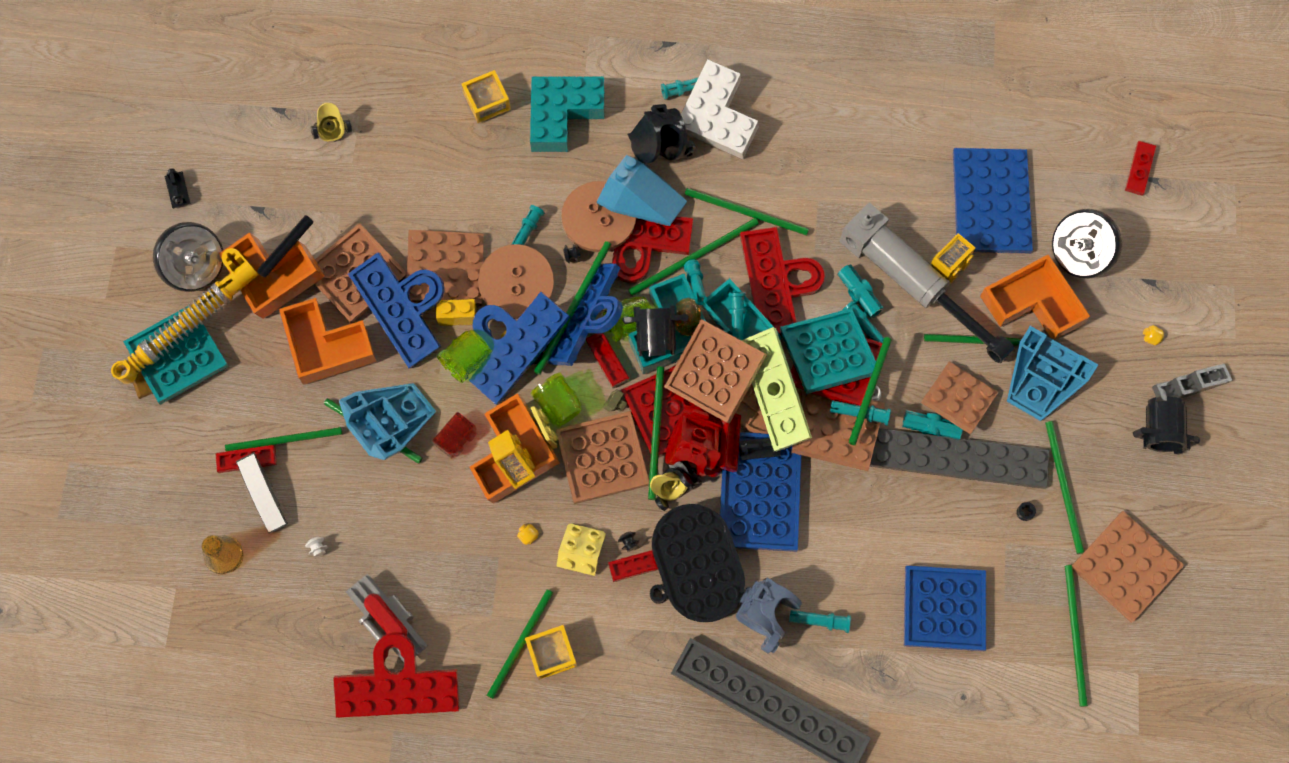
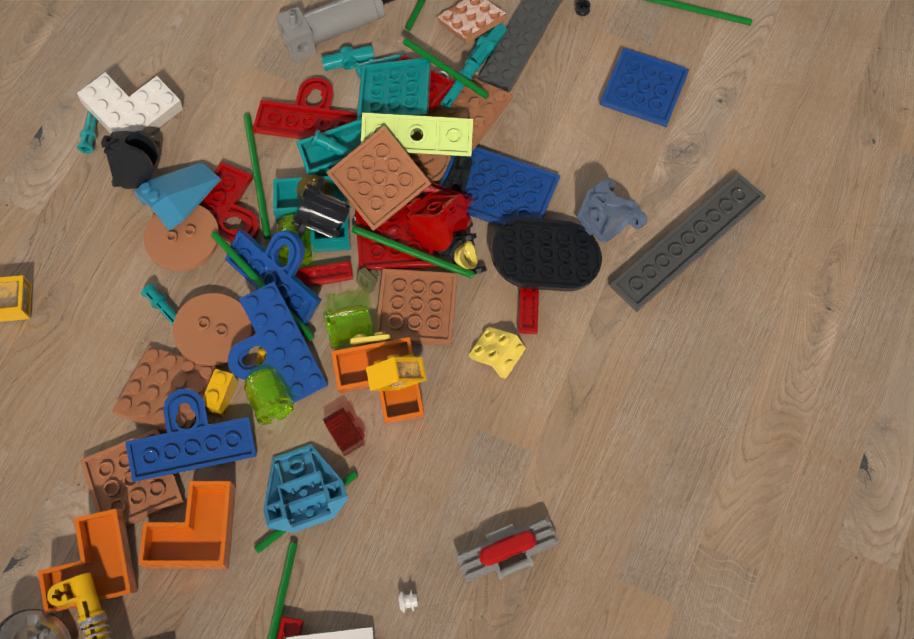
camera: 70 degrees left, 5 degrees down
(283, 248) = (73, 533): black axle -> none
(396, 691) = (583, 561): red plate -> none
(519, 644) = (569, 433): green piece -> none
(527, 534) = (465, 396): yellow piece -> none
(550, 652) = (589, 404): piece -> none
(557, 100) = (49, 238): teal piece -> none
(571, 253) = (206, 272): black wheel -> none
(628, 541) = (504, 308): black wheel -> none
(656, 599) = (564, 294): black bush -> none
(695, 277) = (277, 173): teal pin -> none
(746, 211) = (233, 121): green piece -> none
(830, 621) = (629, 172): teal pin -> none

